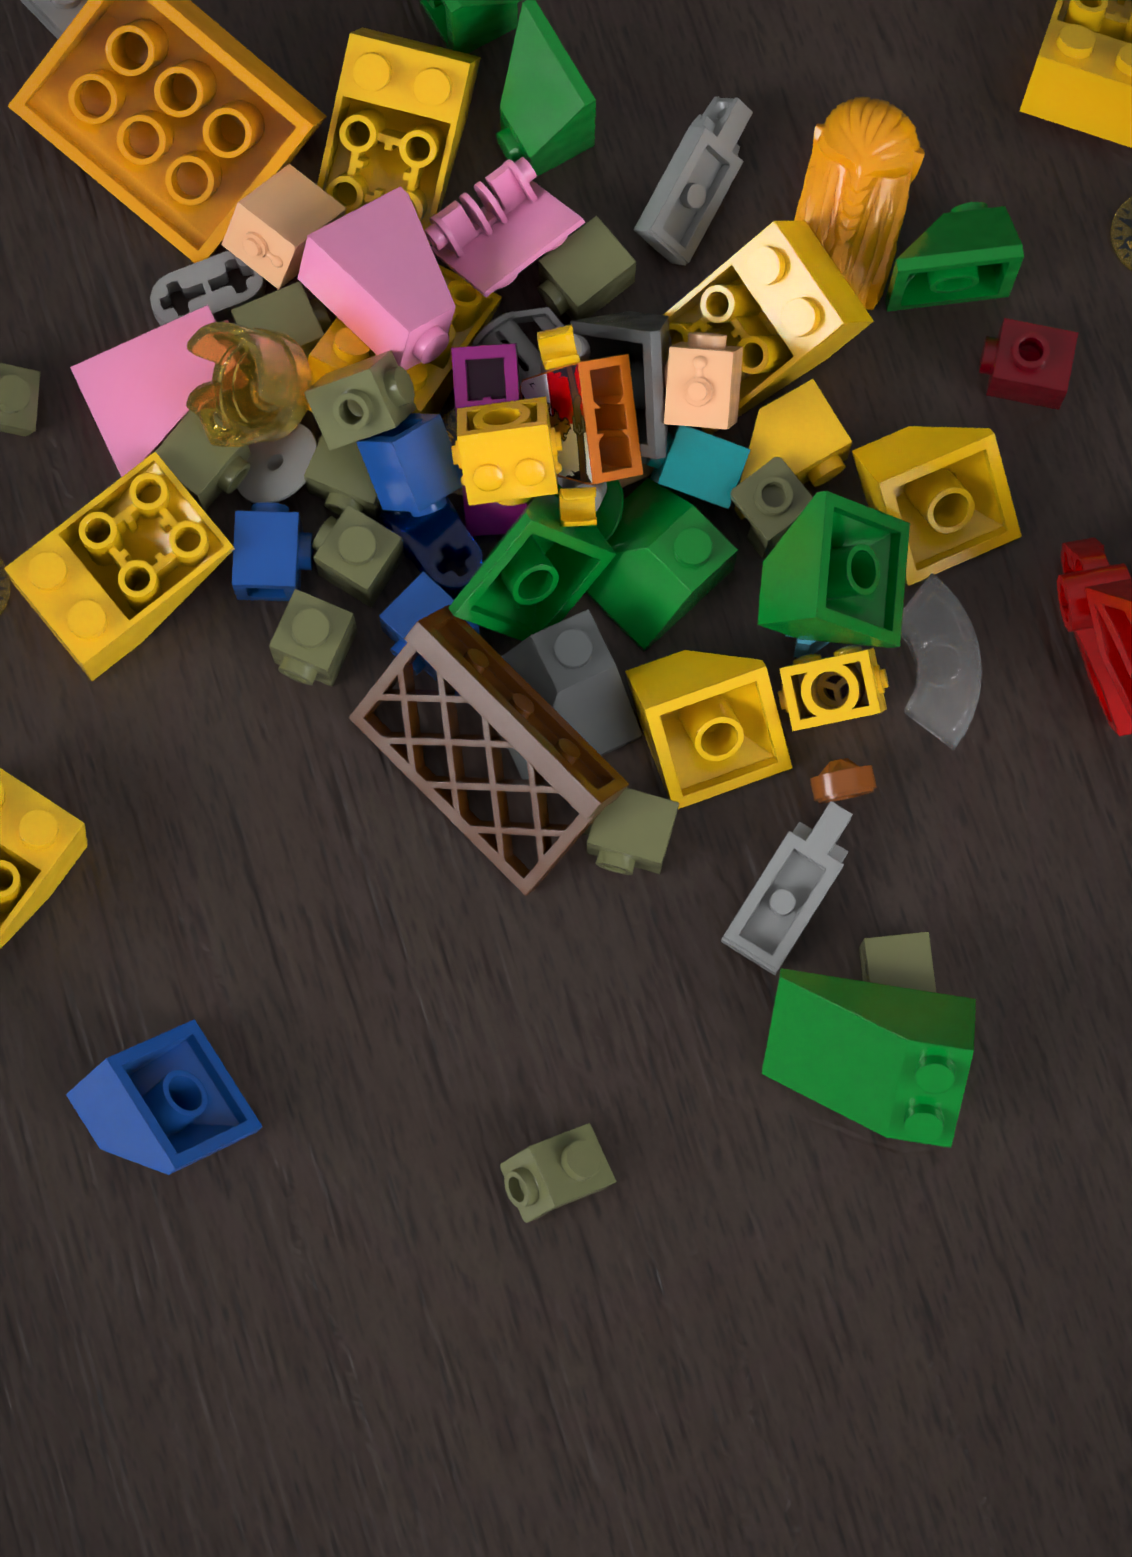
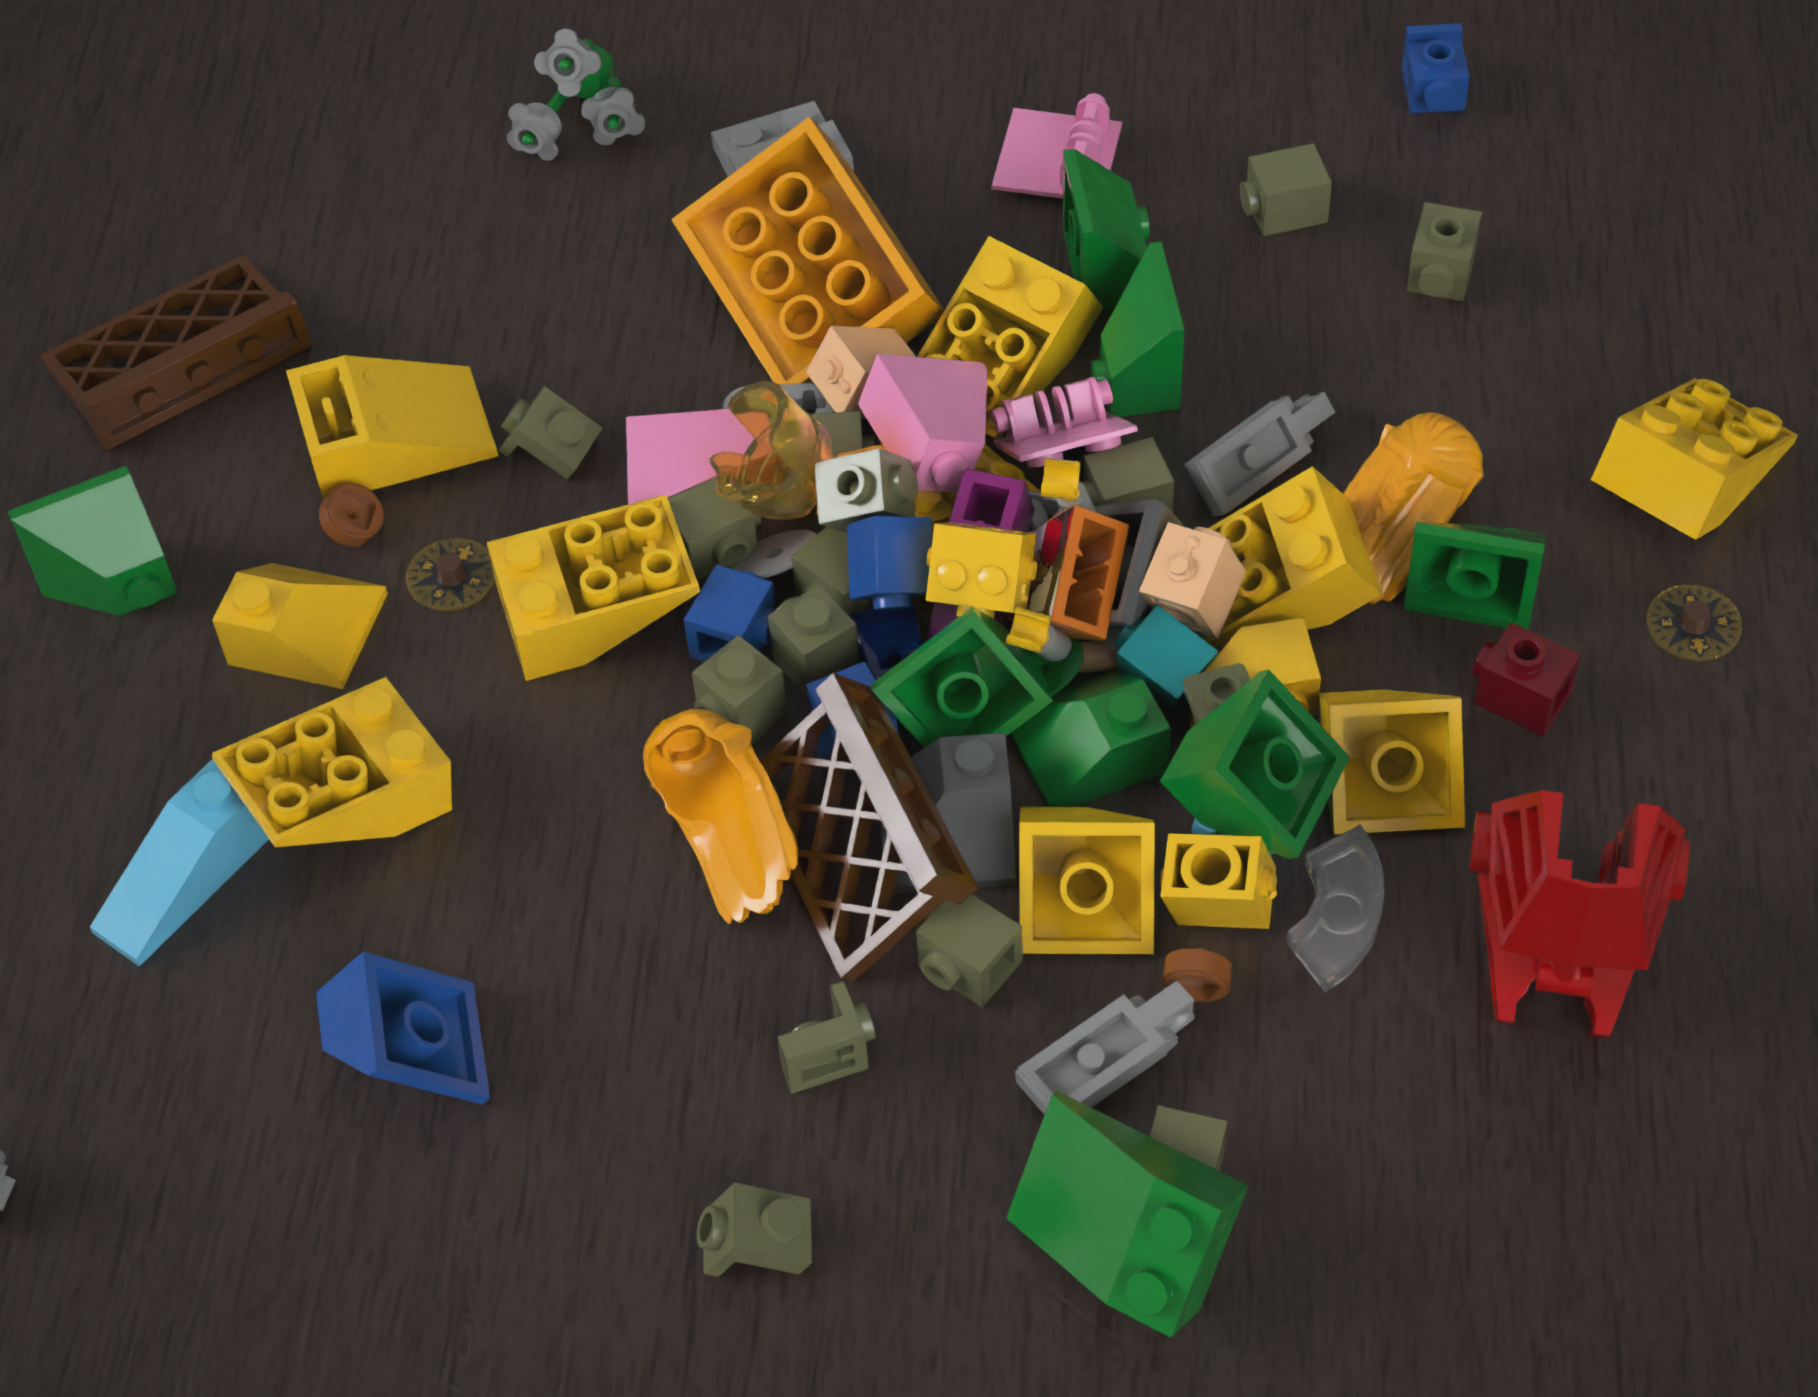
camera: 25 degrees right, 25 degrees down
(359, 771) = (724, 809): none -> light orange hair
(542, 980) = (827, 1049): none -> olive bracket

